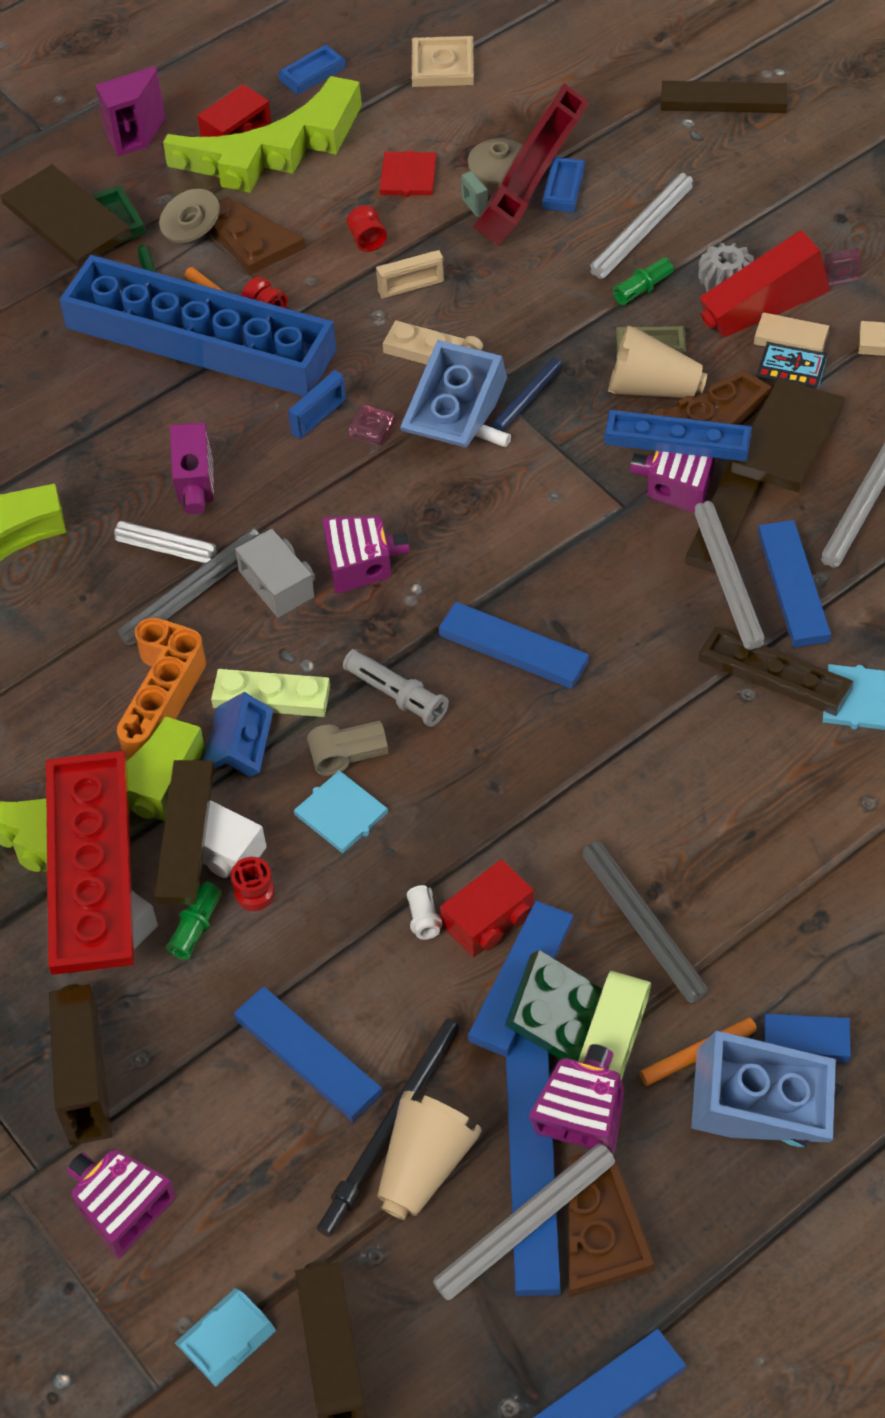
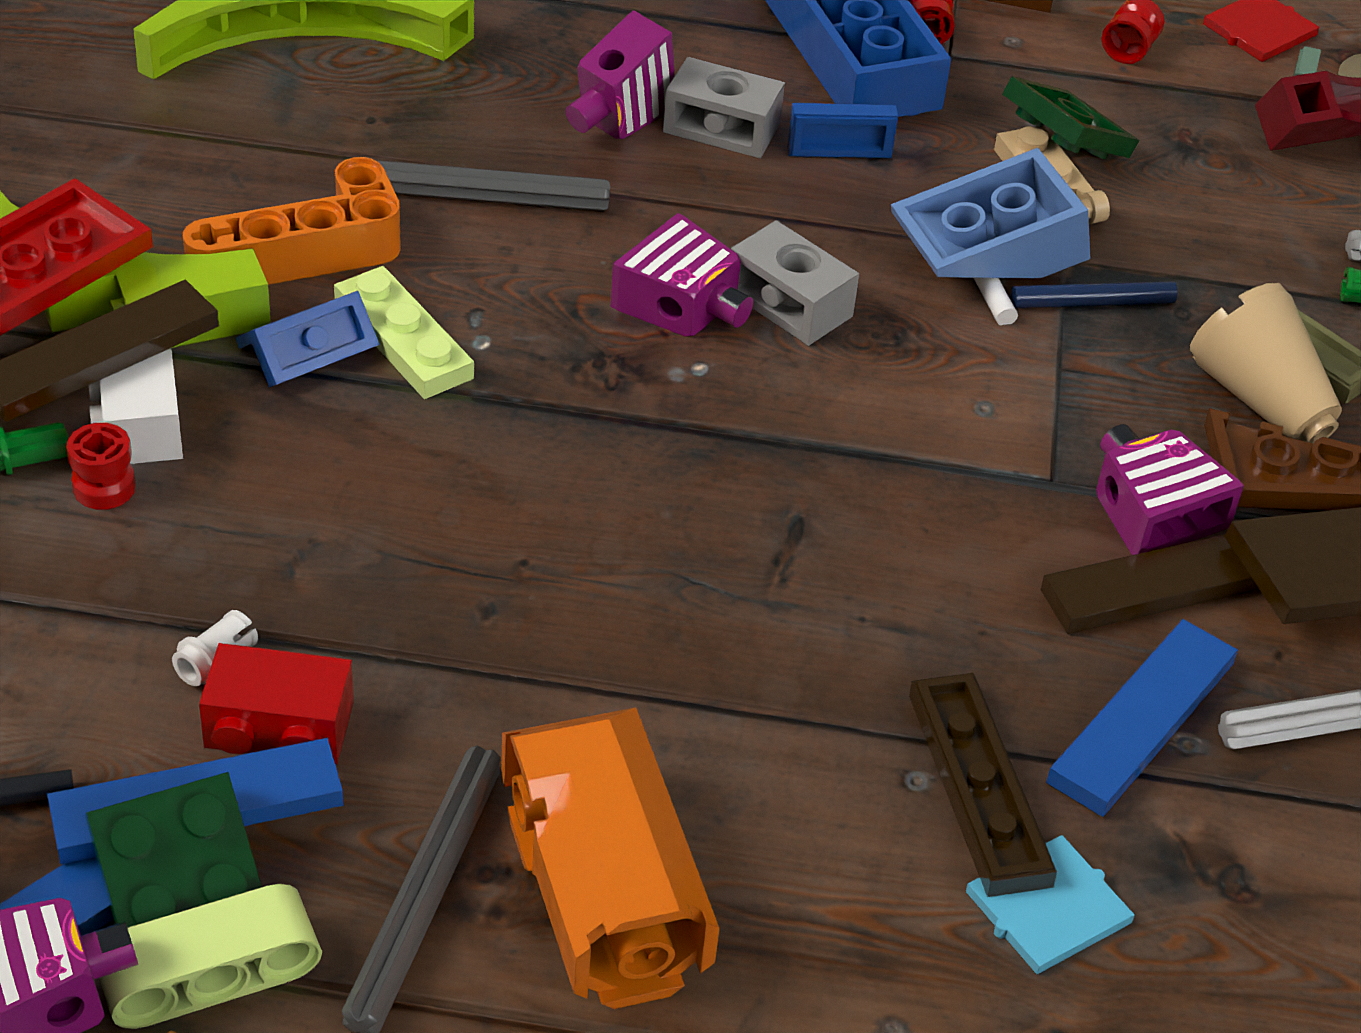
camera: 40 degrees right, 10 degrees down
(164, 542) = (511, 128): axle -> none
(248, 439) = (723, 107): none -> light grey brick
(275, 572) = (569, 231): light grey brick -> none
(336, 748) = (379, 424): dark tan piece -> none
(341, 811) = (298, 491): medium azure piece -> none
(371, 425) = (874, 193): clear pink tile -> none
(407, 693) = (527, 441): light grey pin -> none
(408, 505) = (795, 282): none -> light grey brick
(410, 274) = (1123, 96): tan tile -> none
(421, 307) = (1070, 118): none -> dark green plate
(514, 645) = (716, 501): blue tile -> none
(677, 435) = (1198, 441): blue tile -> none
(701, 835) = (608, 856): none -> orange brick
(729, 576) = (1057, 632): light grey axle -> none

